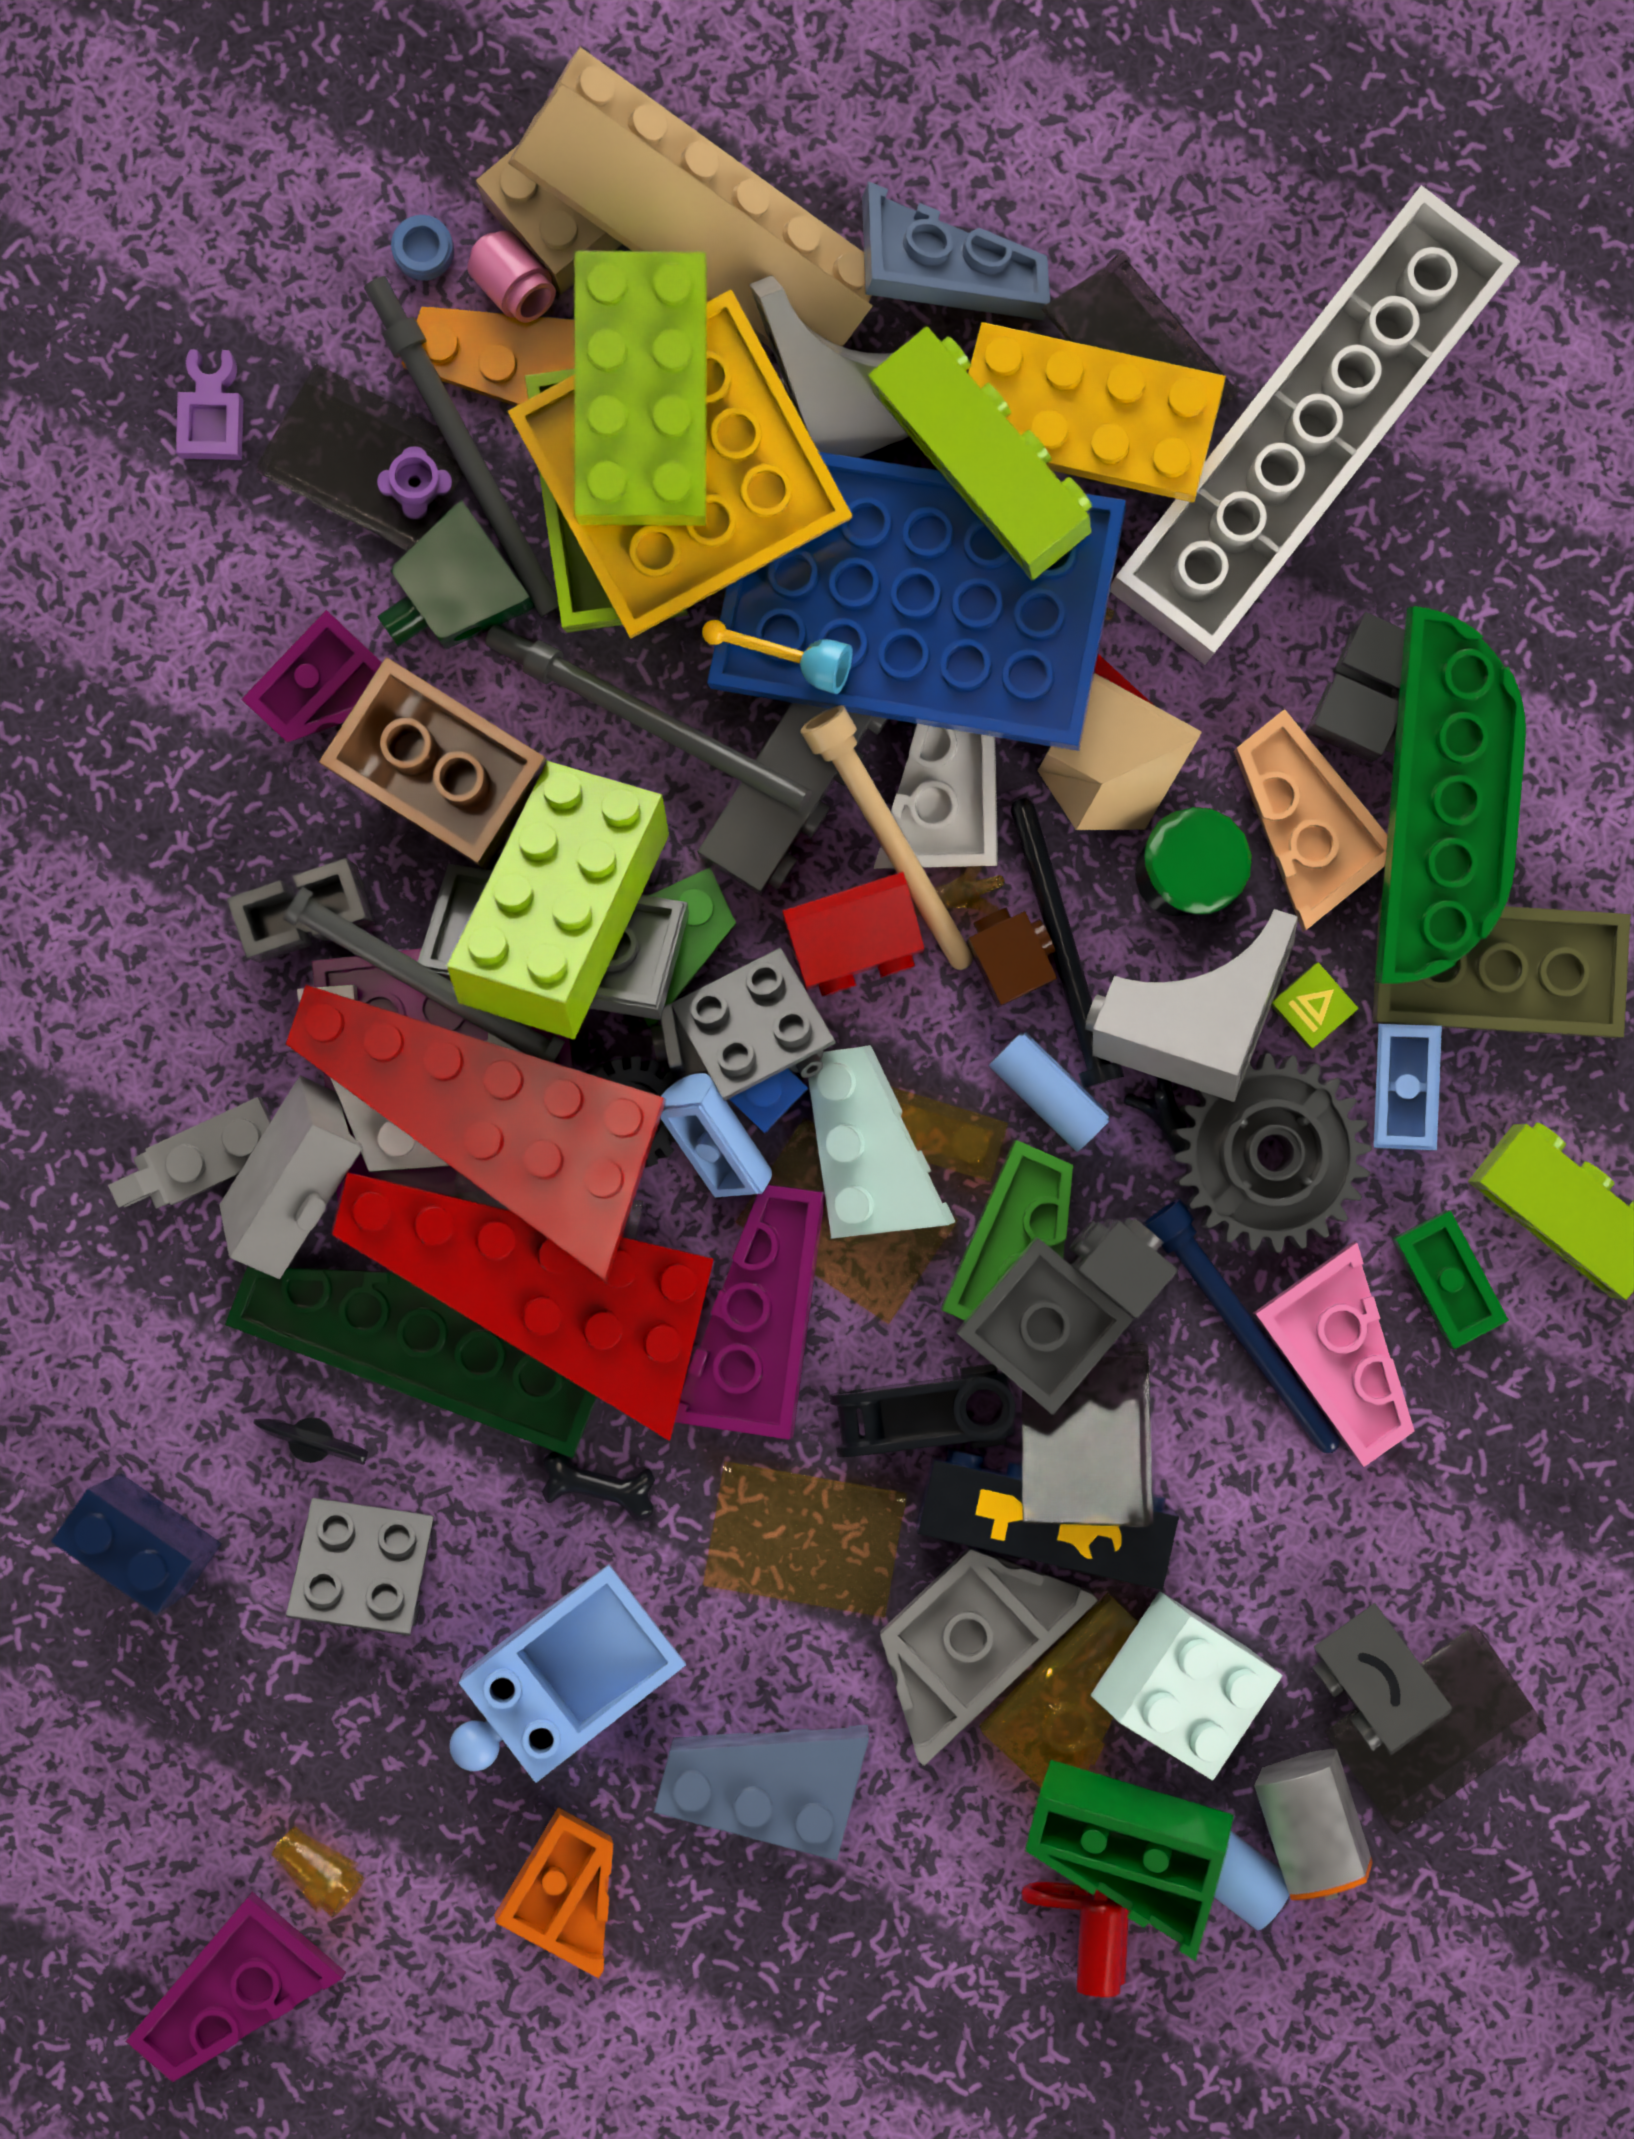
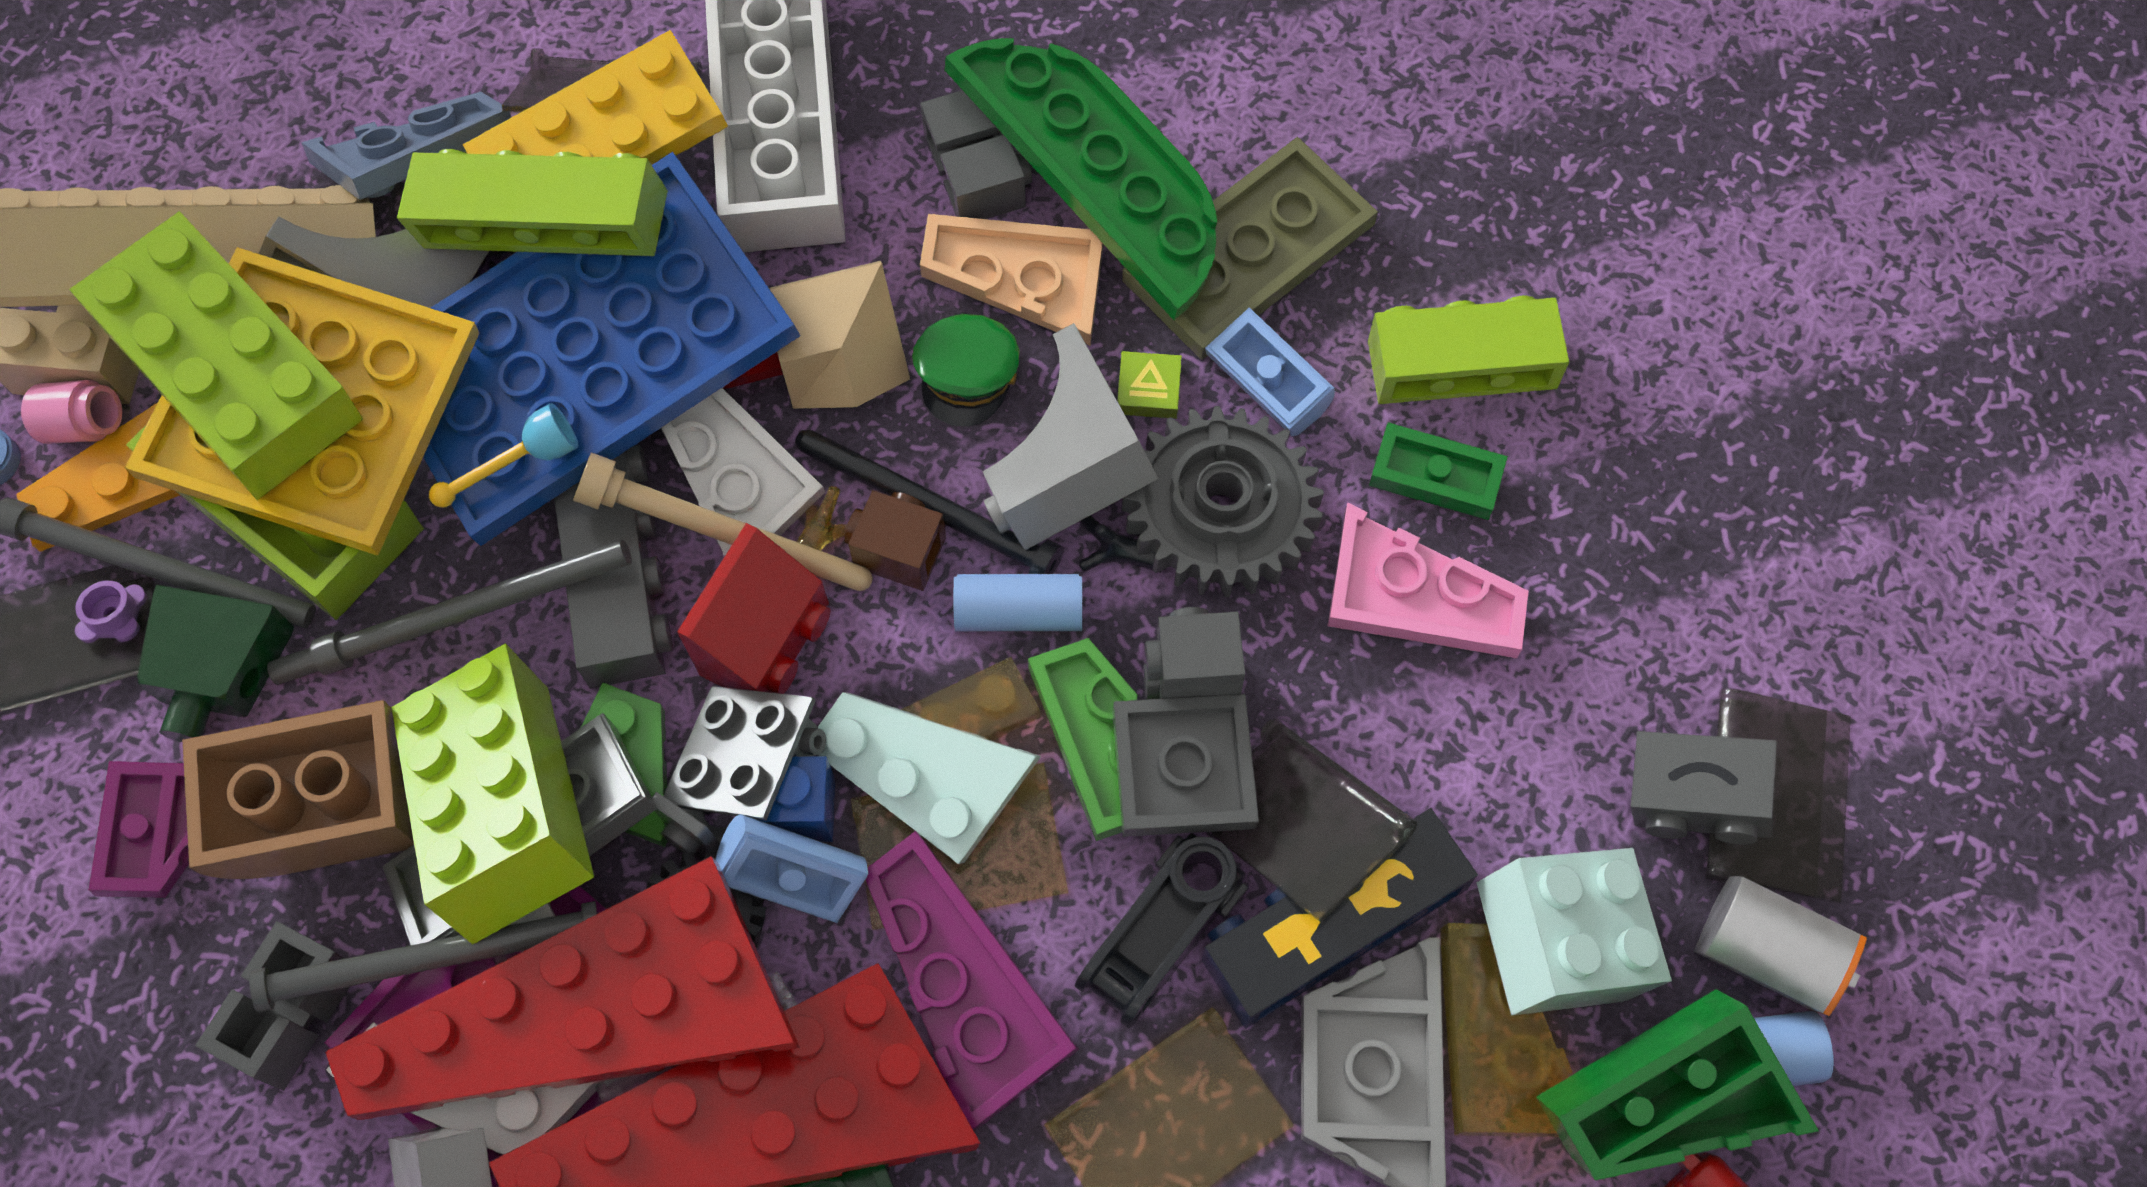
camera: 40 degrees left, 20 degrees down
(1174, 1228) = (1350, 642): dark blue piece -> none

